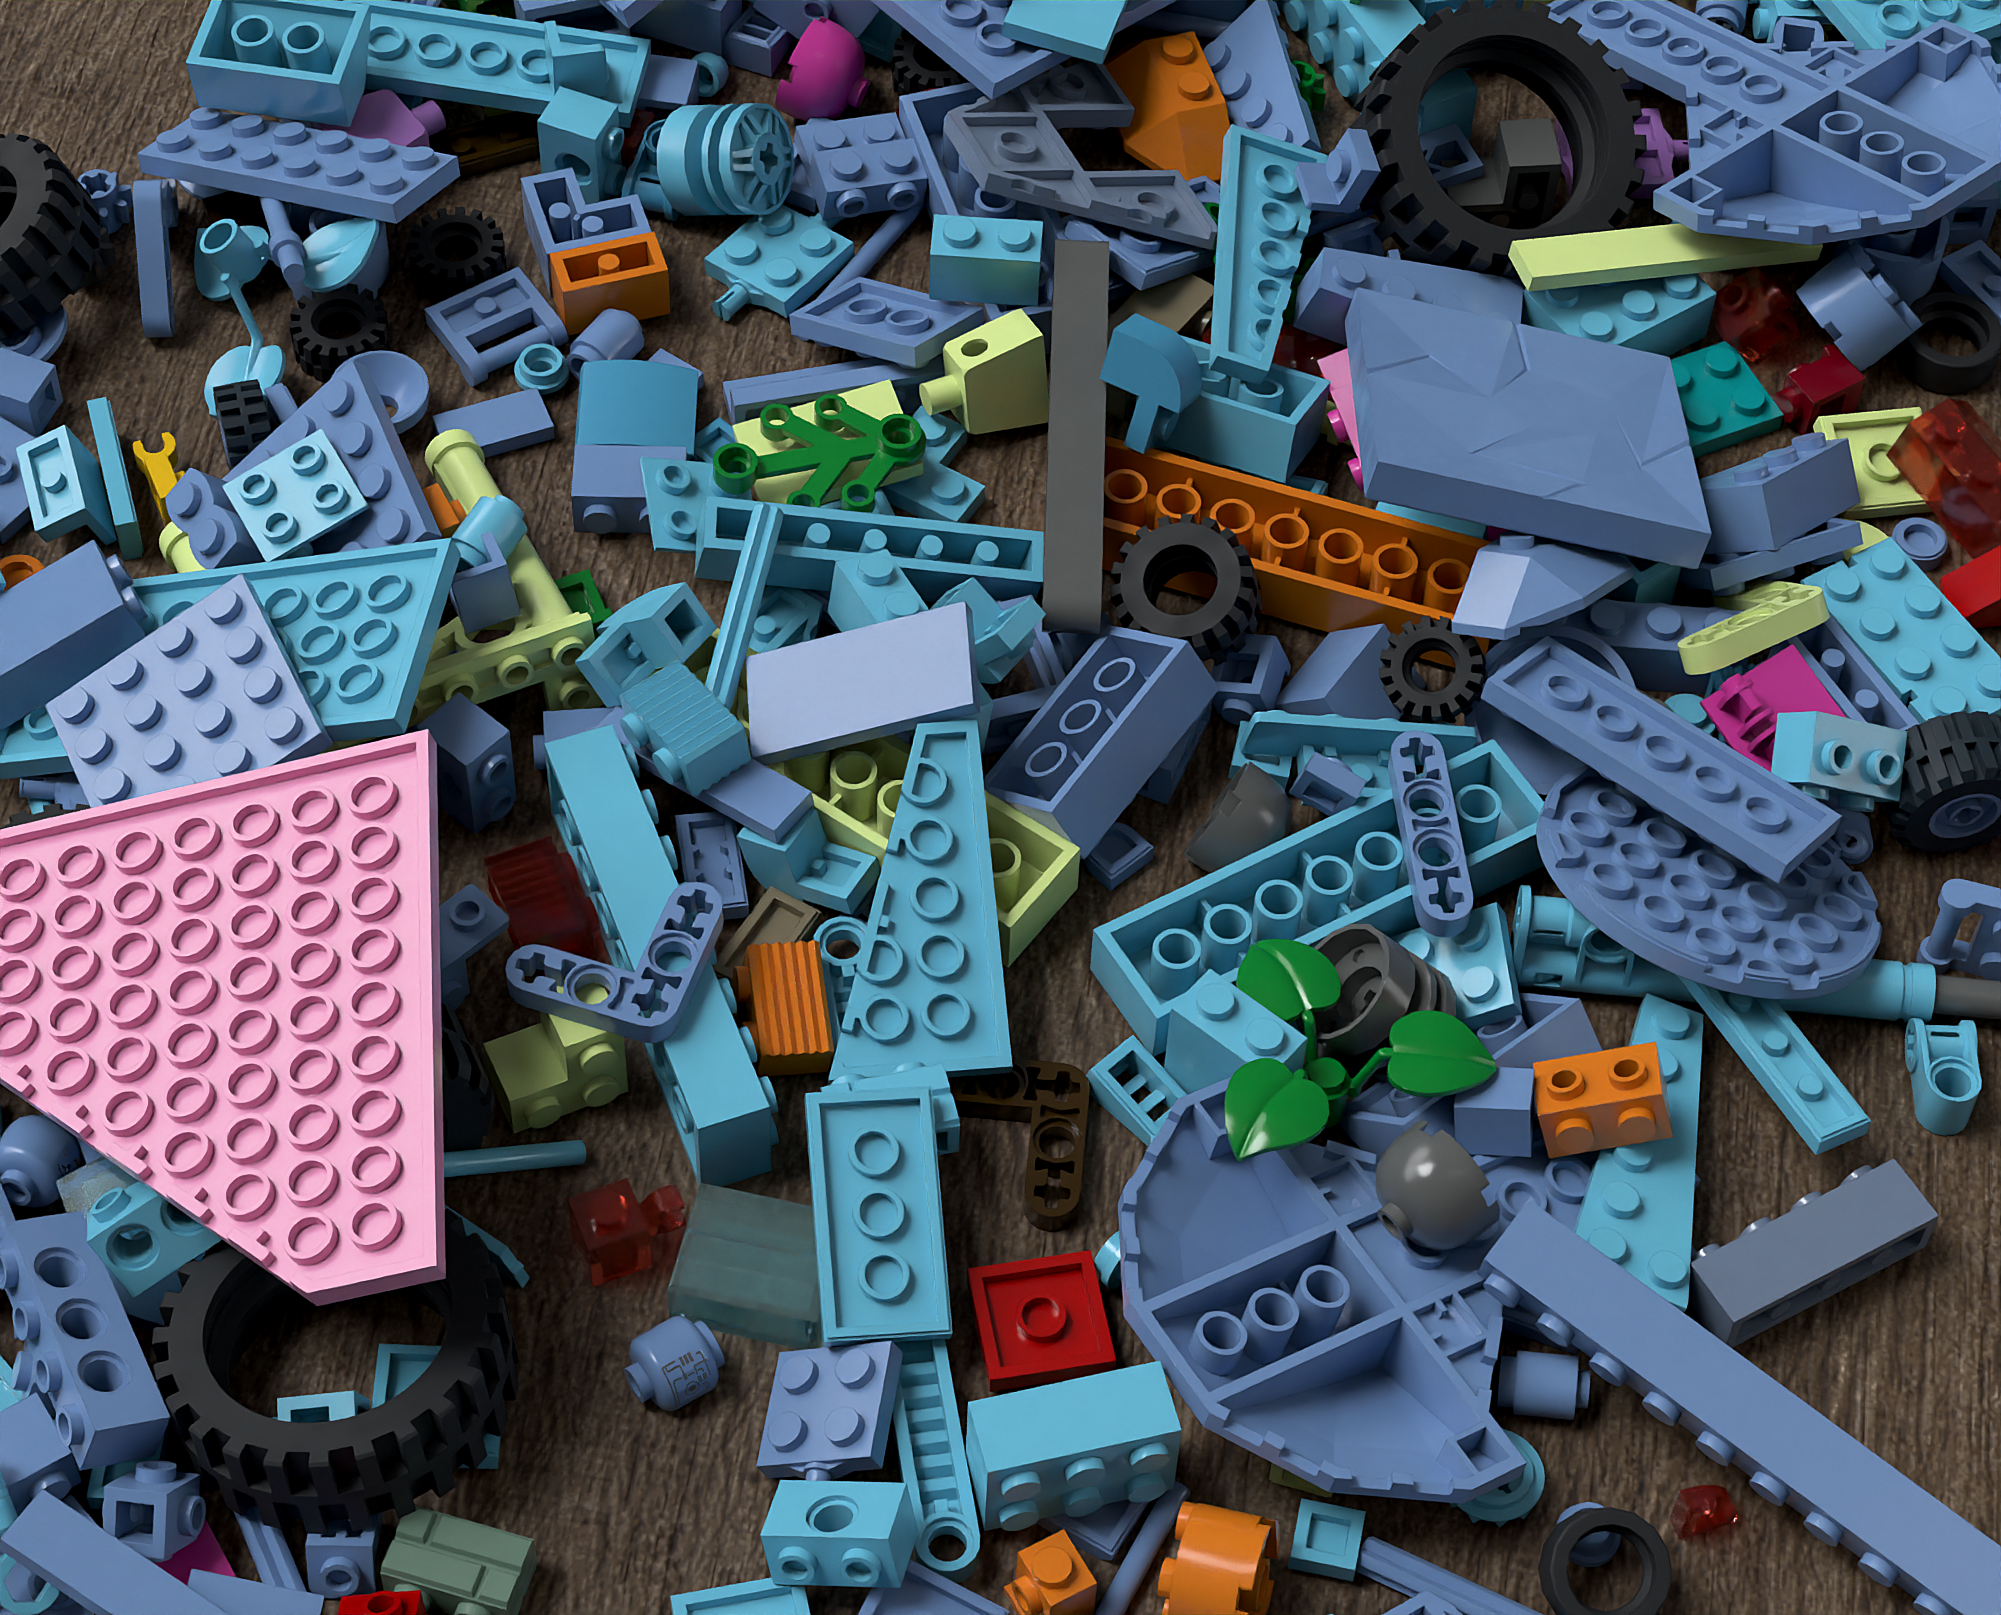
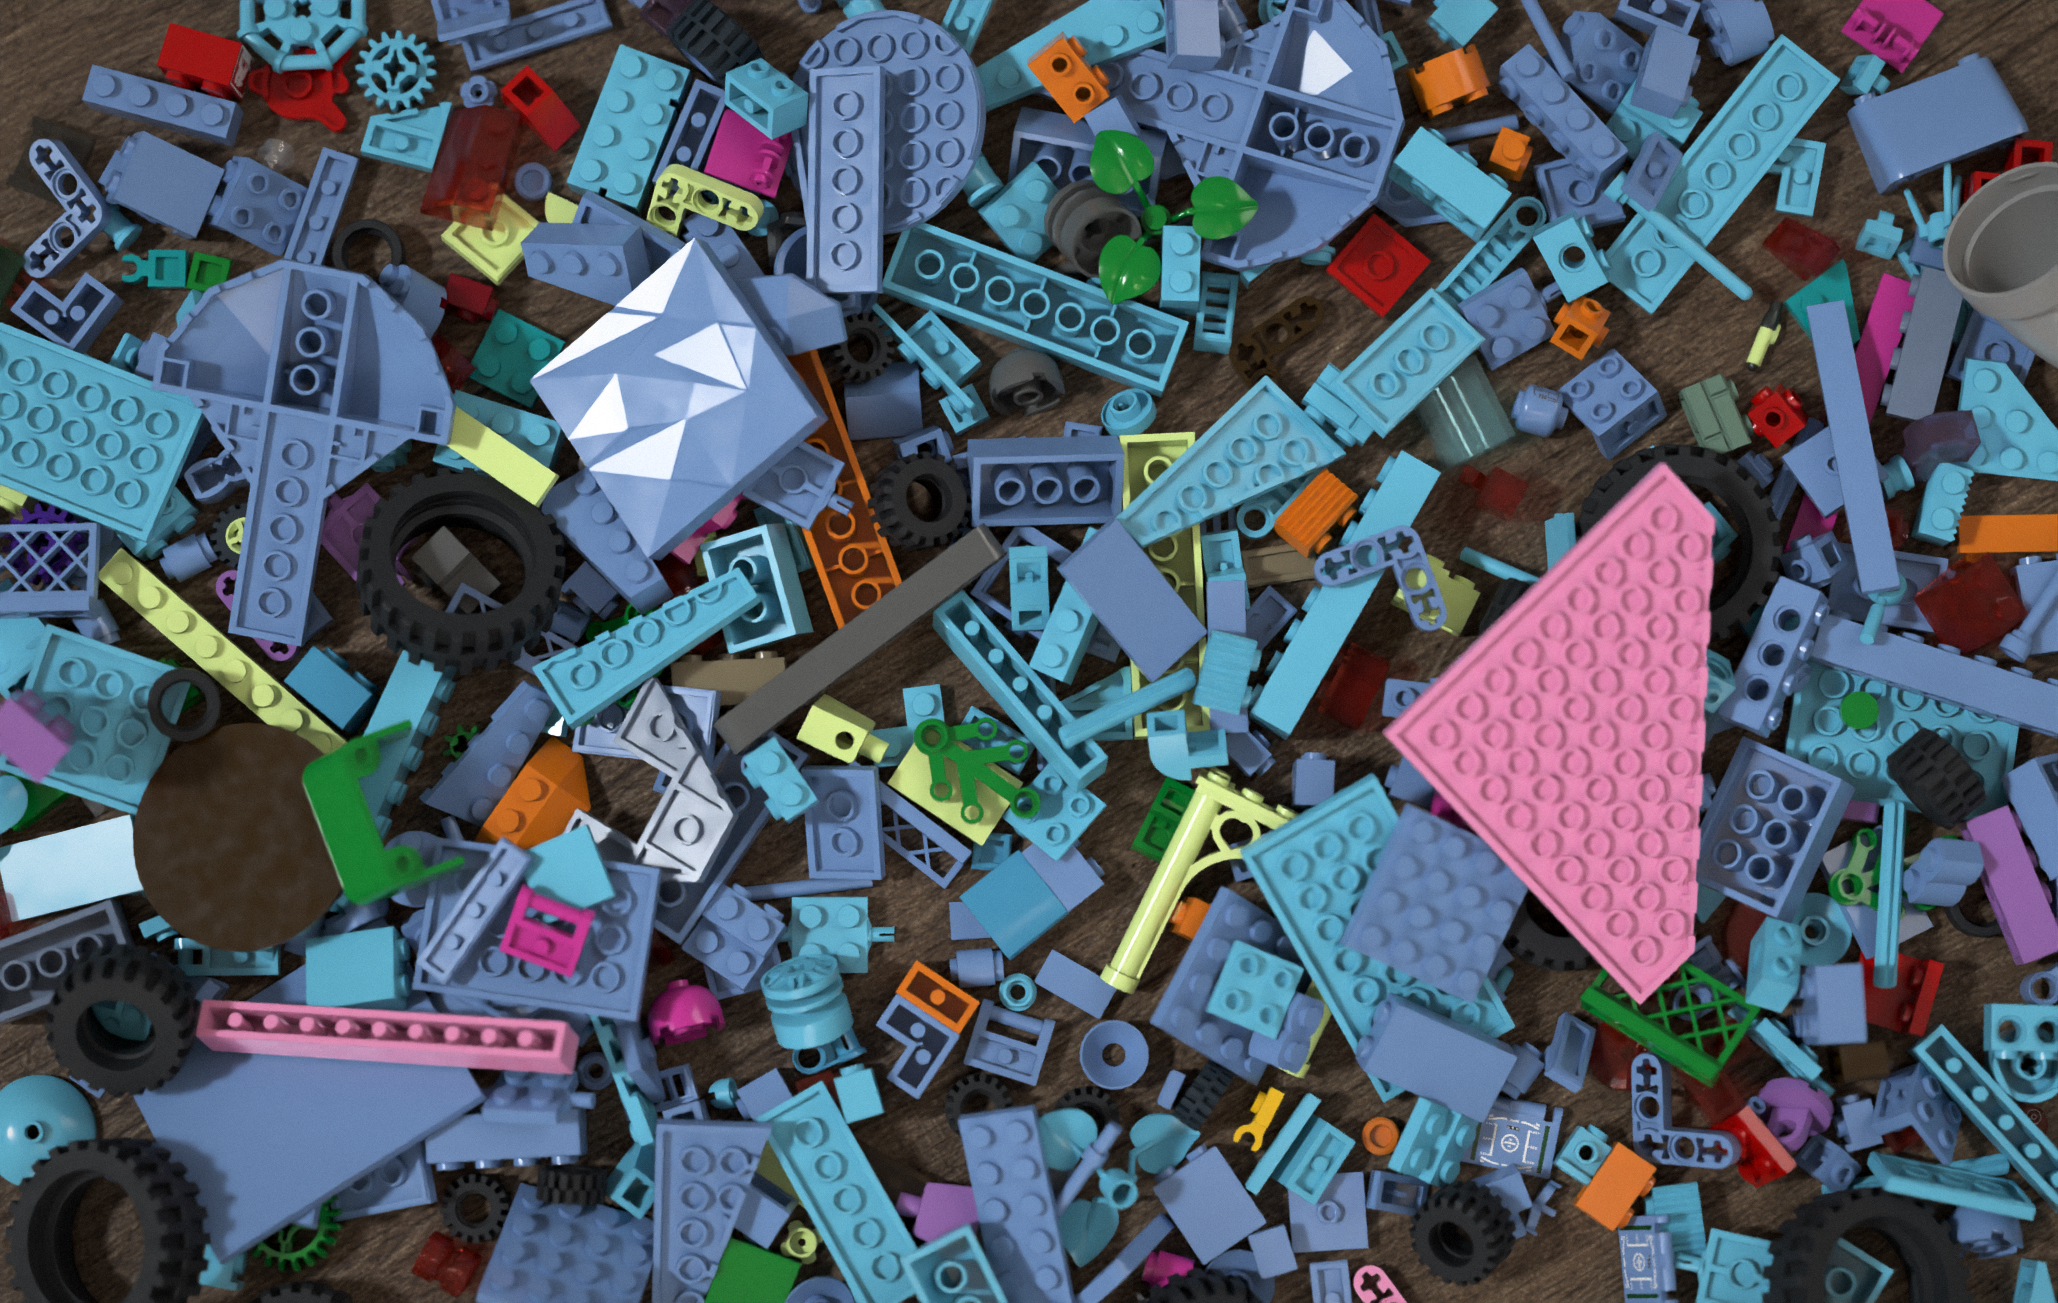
camera: 125 degrees left, 30 degrees up
(104, 295) = (1164, 1264): none -> dark pink brick
(138, 362) = (1207, 1203): none -> medium blue brick
(486, 591) = (1224, 847): medium blue panel -> none
(487, 515) = (1188, 879): medium azure brick -> none
(575, 67) = (822, 1131): medium azure panel -> none
(602, 1456) = (1613, 402): none -> medium blue bracket
(733, 1486) = (1580, 326): none -> orange brick
(1095, 898) = (1128, 412): none -> medium azure plate
(1158, 369) = (801, 617): dark azure brick -> none
(1316, 495) = (800, 486): none -> medium blue plate
(1327, 785) = (976, 346): medium blue plate -> none
(1344, 177) = (562, 636): medium blue bracket -> none
(1432, 1191) = (1201, 109): dark grey cylinder -> none
(1433, 832) = (977, 273): medium blue beam -> none

